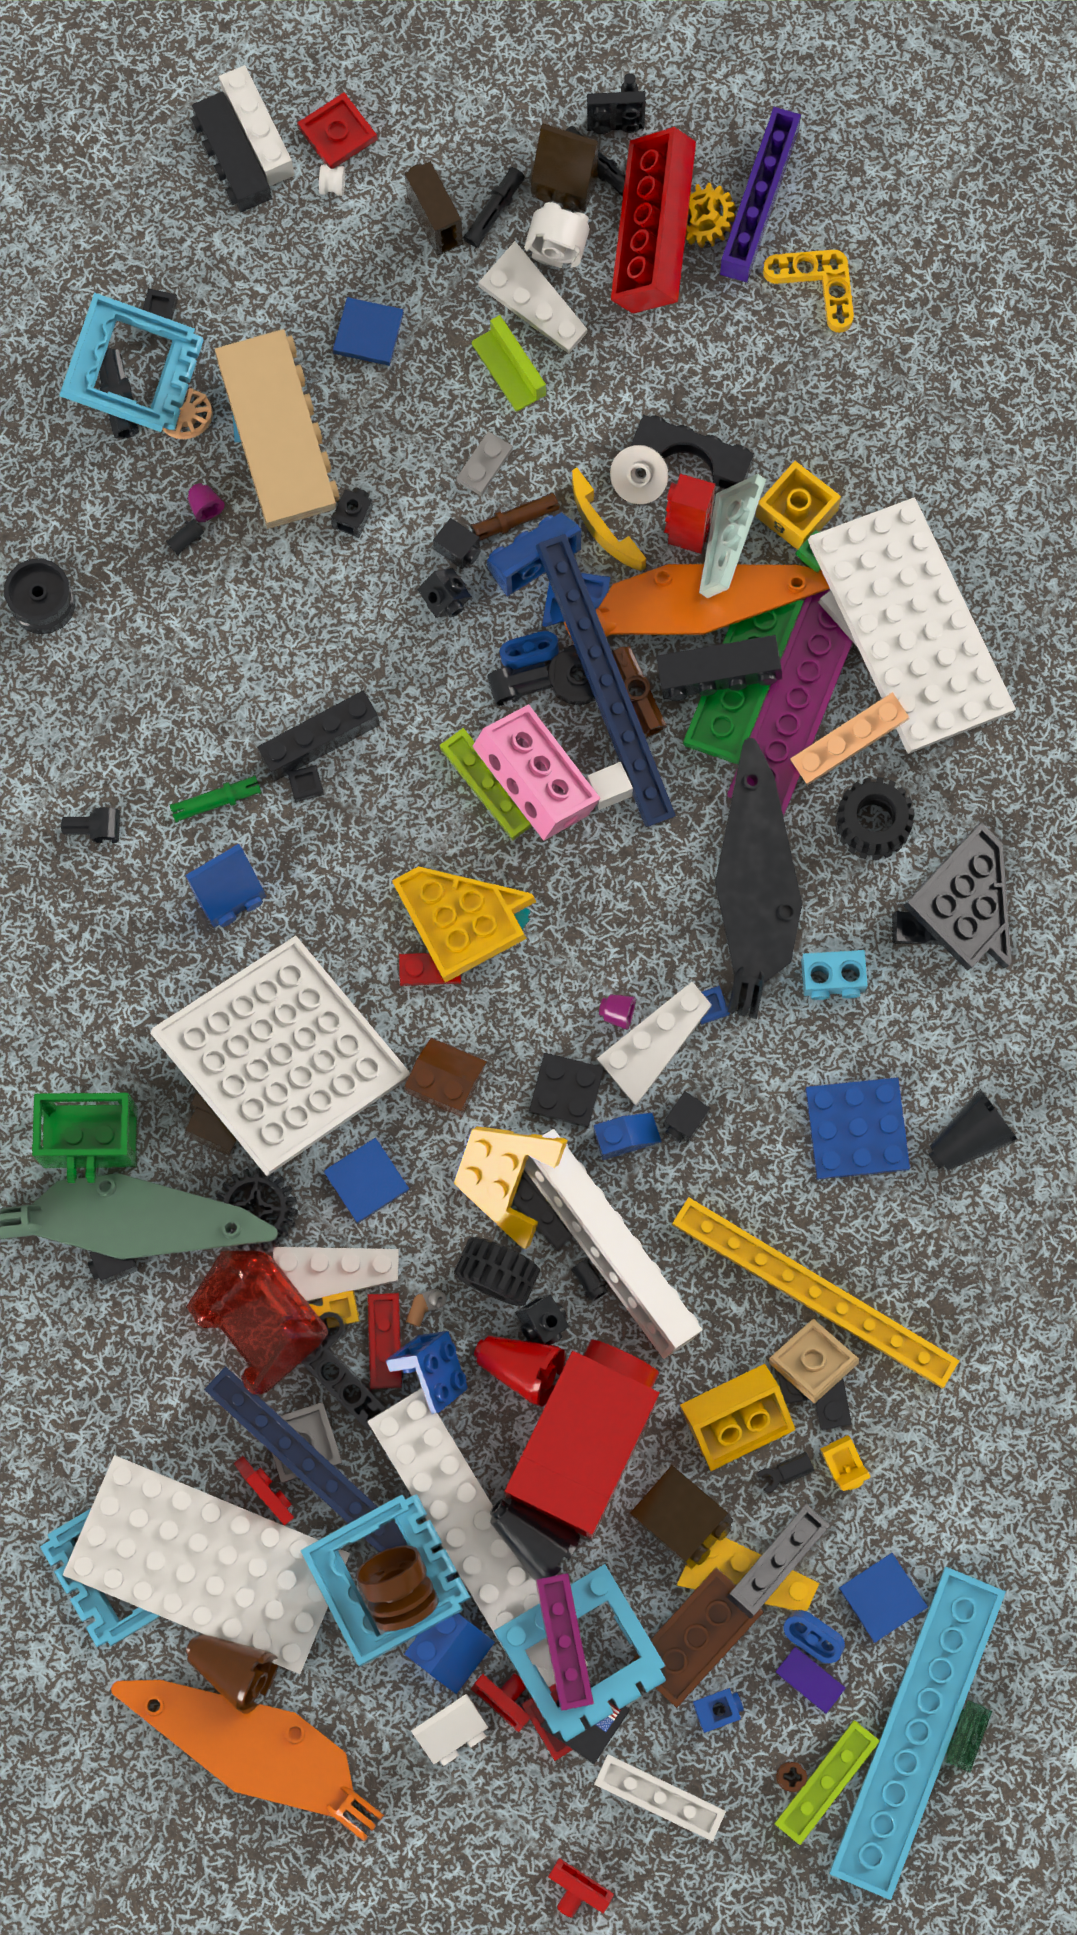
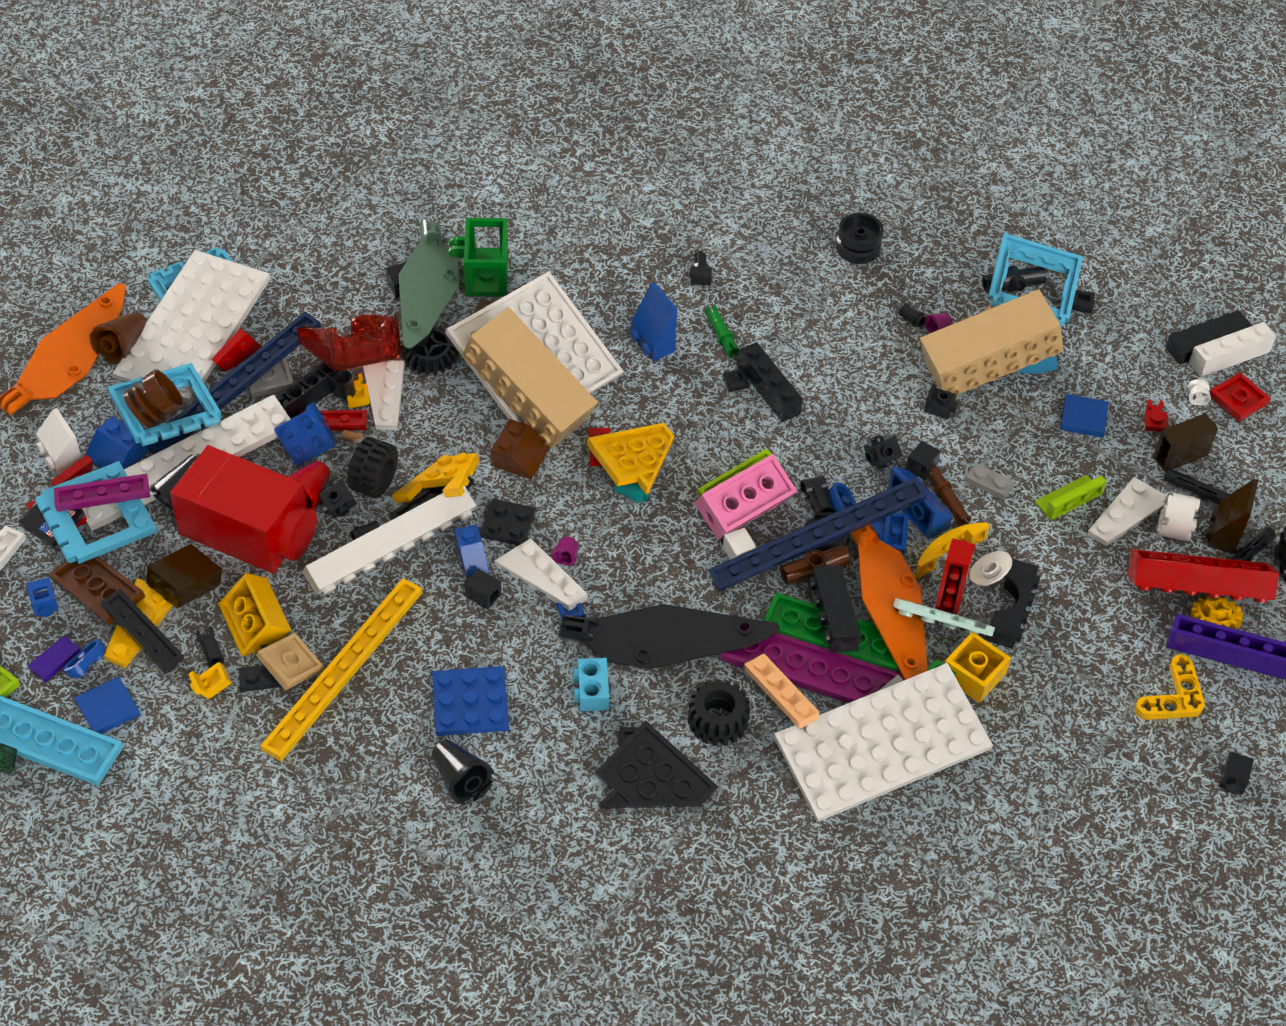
camera: 85 degrees right, 25 degrees down
(349, 1056) = (529, 377): none -> tan brick
(366, 1180) = (447, 411): blue tile -> none
(375, 242) = (1154, 418): none -> red plate
(934, 230) = (1236, 773): none -> black brick

